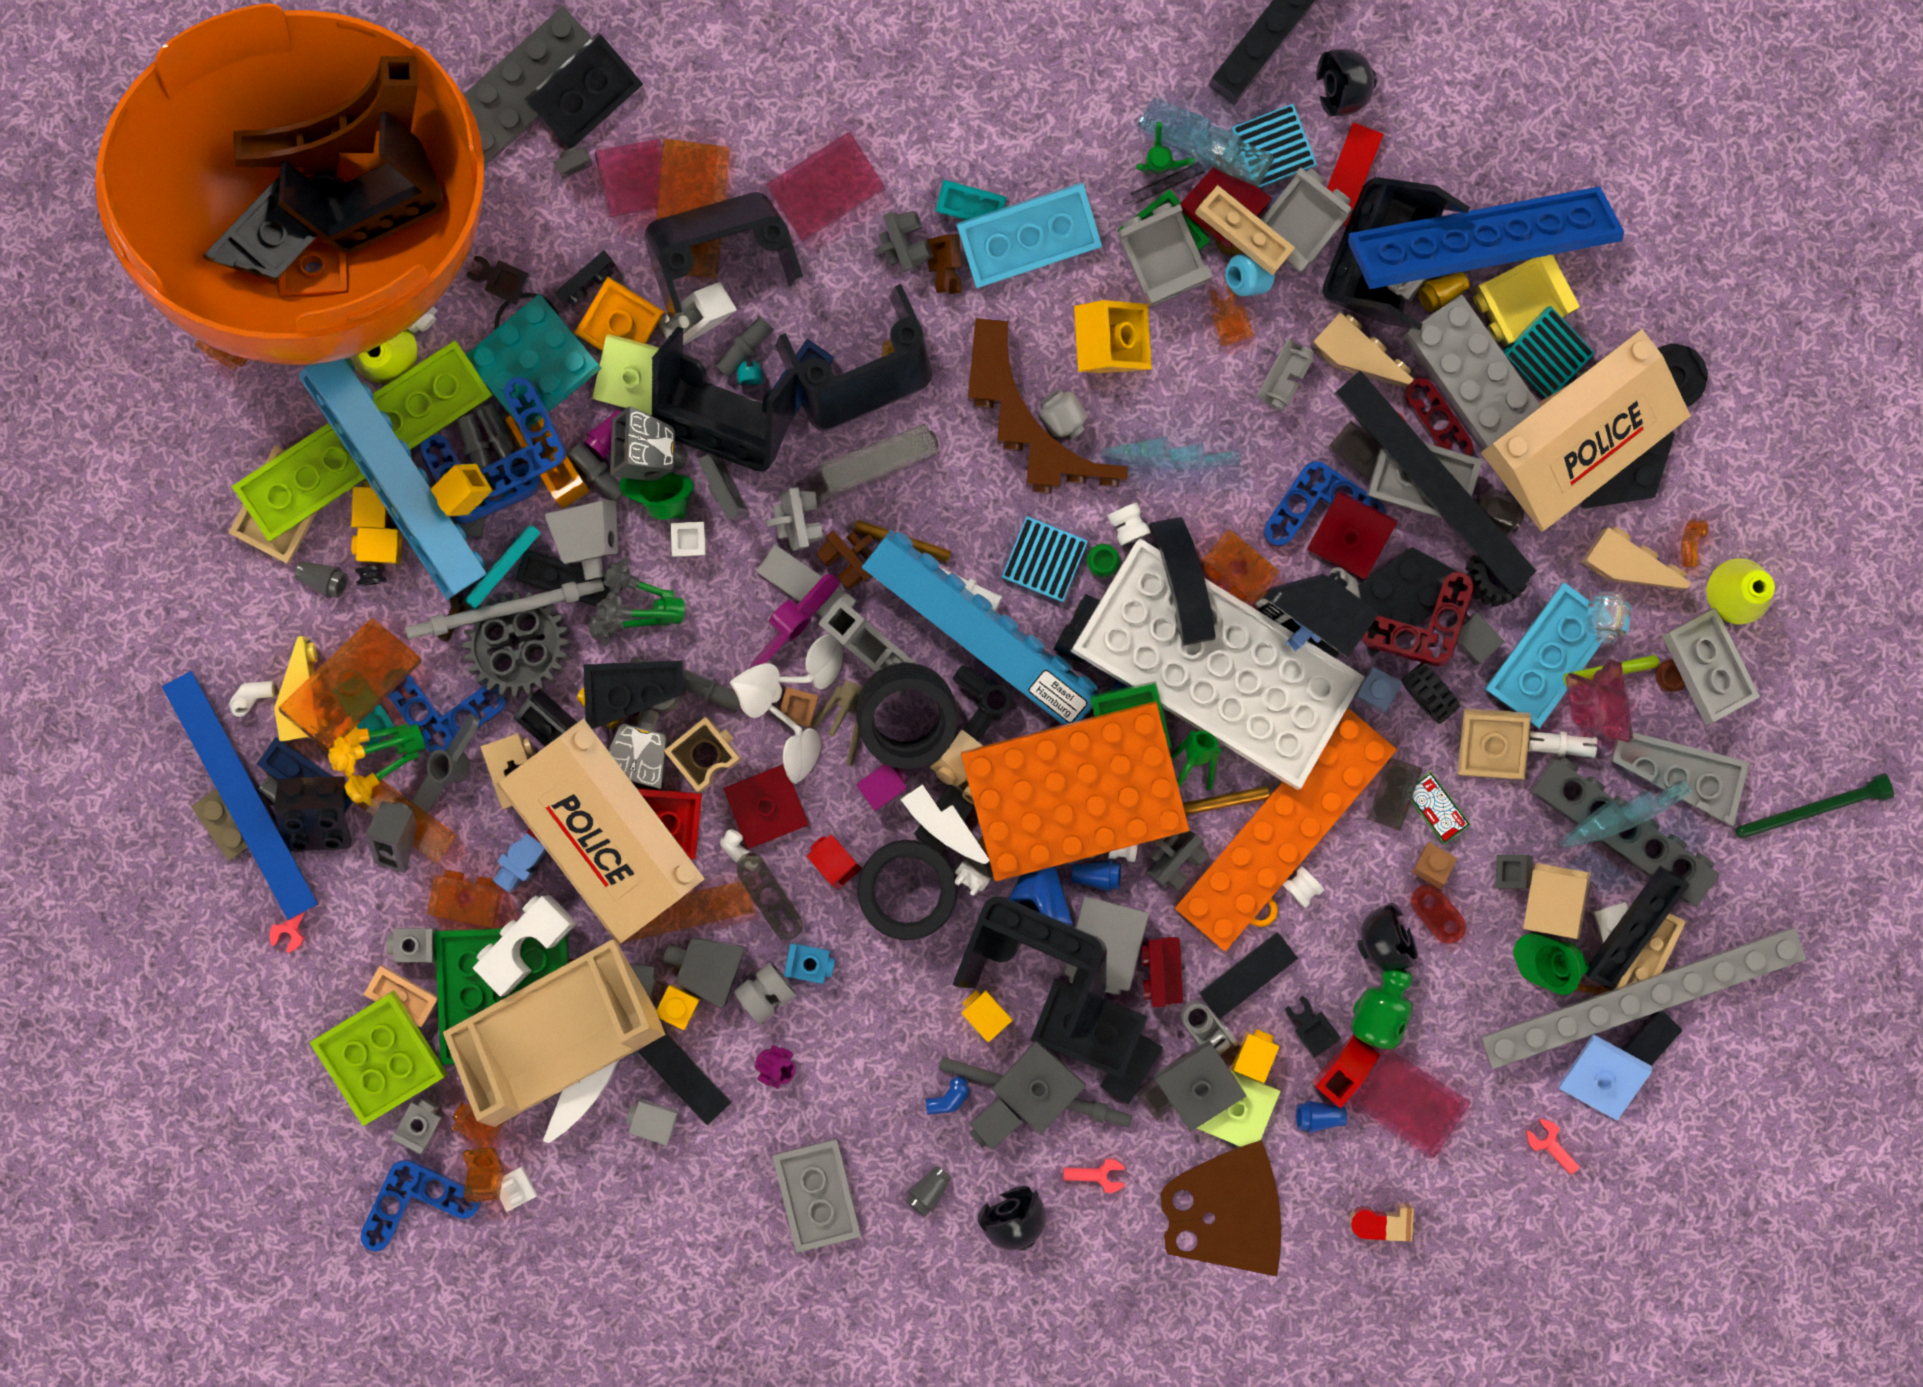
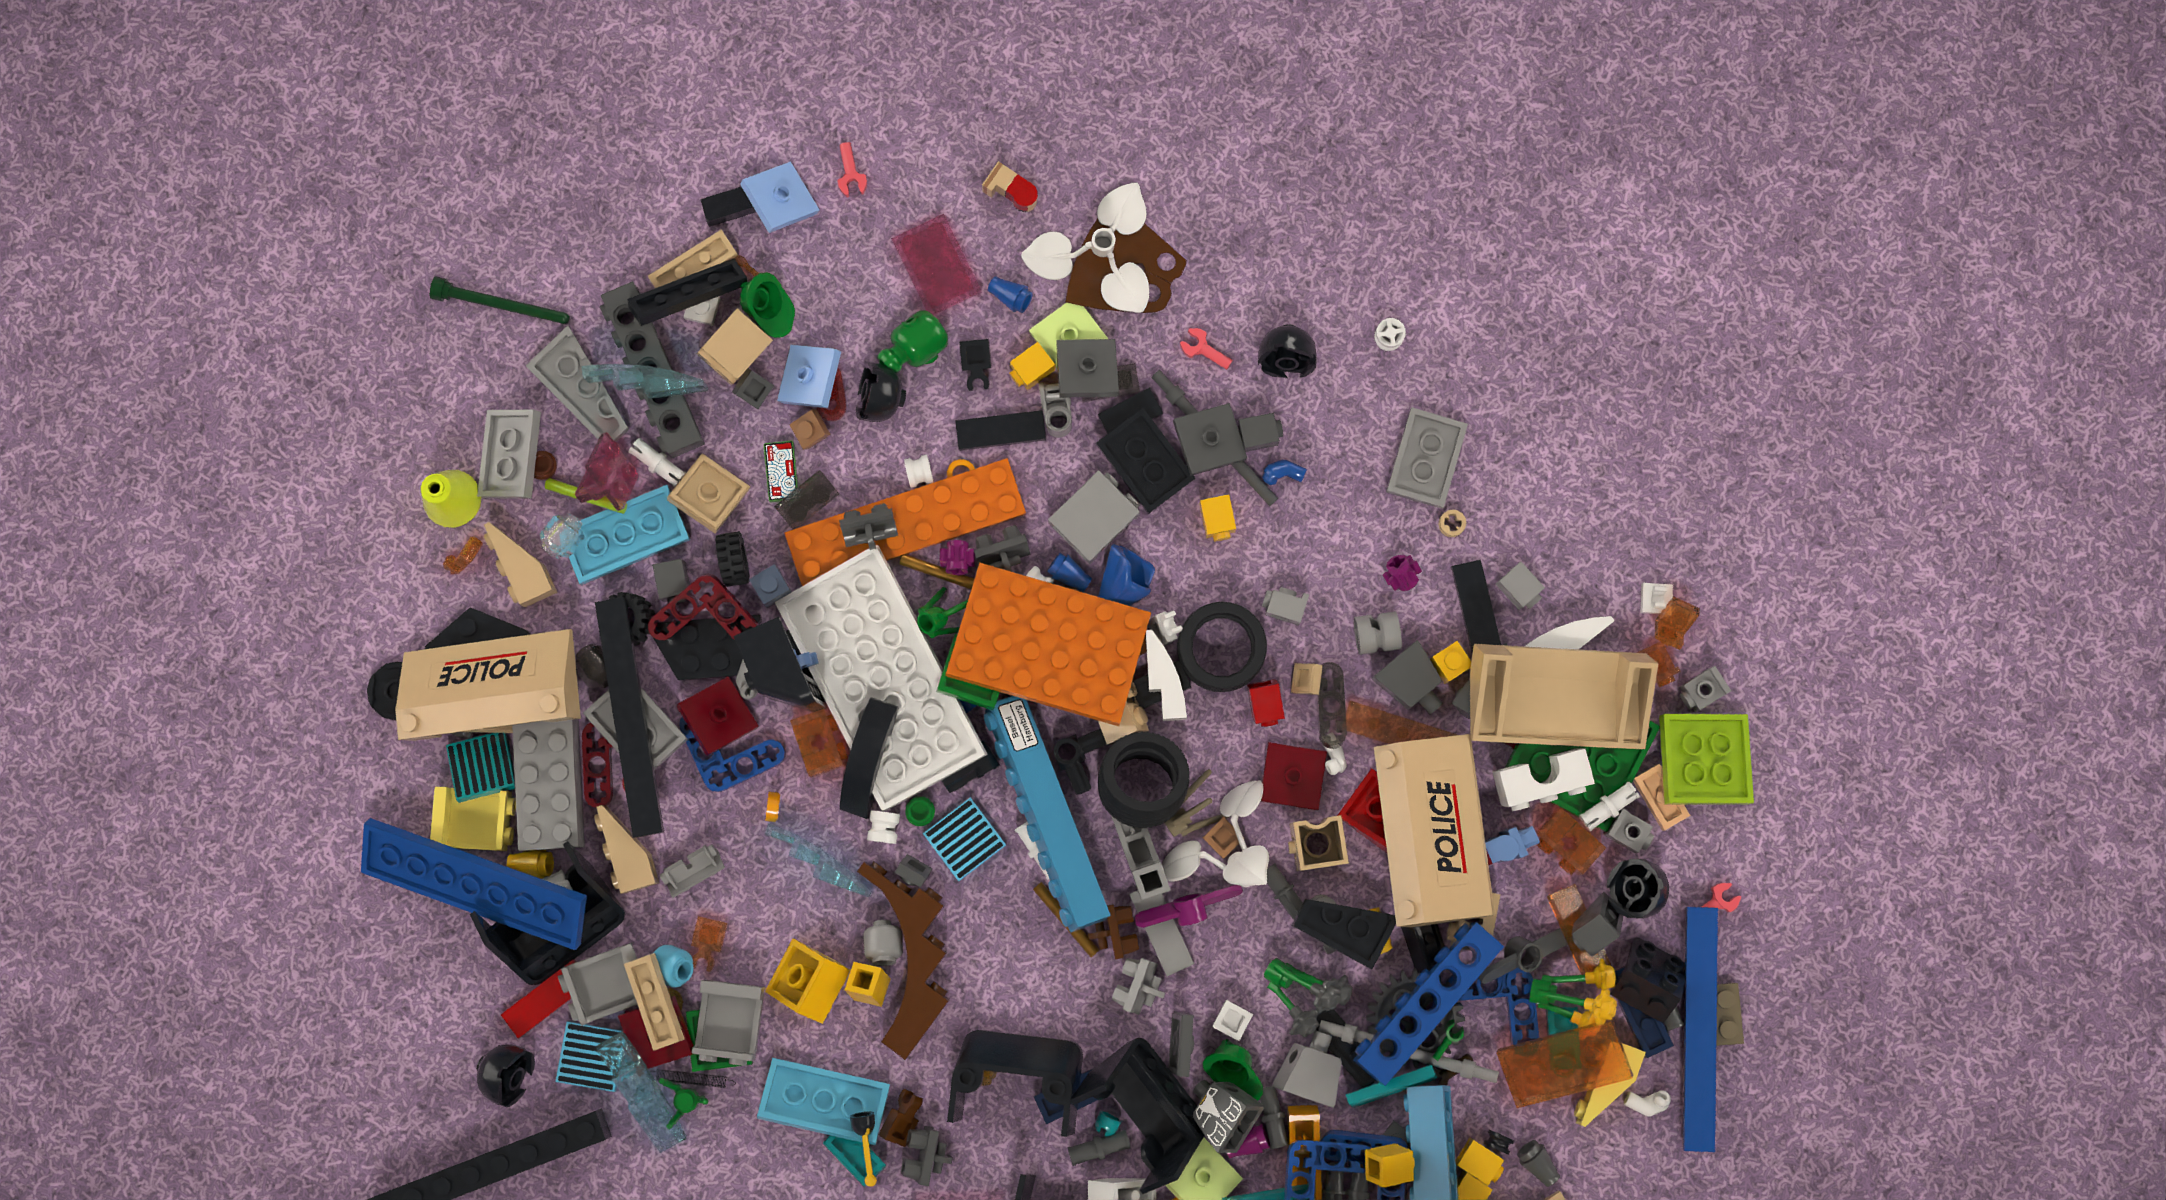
camera: 145 degrees left, 5 degrees down
(374, 893) = (1638, 888): none -> black cylinder
(417, 1189) = (1733, 643): blue beam -> none
(445, 956) = (1609, 806): none -> white pin
(472, 644) = (1448, 1039): none -> green hand
(486, 744) = (1484, 950): none -> blue brick
(641, 750) = (1365, 876): light grey torso -> none
(751, 1155) = (1445, 529): none -> tan bush
(795, 963) = (1333, 647): dark azure brick -> none
(807, 907) = (1306, 679): none -> tan tile
(870, 967) = (1285, 605): none -> light grey brick
(871, 464) = (1053, 993): clear smoke slope -> none
(883, 785) = (1193, 737): magenta brick -> none
(927, 1302) = (1389, 328): none -> white wheel
(928, 1191) = (1339, 411): dark grey cone -> none
(978, 234) = (863, 1125): none -> hinge
(1008, 923) = (1160, 574): black windscreen -> none
(1053, 367) = (867, 984): none -> yellow brick
(1074, 499) = (913, 871): none -> dark grey plate
(1164, 971) = (1060, 473): dark red bracket -> none
(1210, 1190) = (1120, 210): none -> white plant
(1215, 824) = (957, 557): none -> magenta gear
(1246, 480) = (772, 806): none -> light orange tile
(1317, 800) = (868, 527): none -> dark grey hips
(1346, 1071) = (970, 314): red slope -> none
(1356, 449) = (673, 780): clear smoke plate -> none
(1466, 916) = (809, 376): none -> light blue plate
(1642, 998) = (715, 238): light grey plate -> none

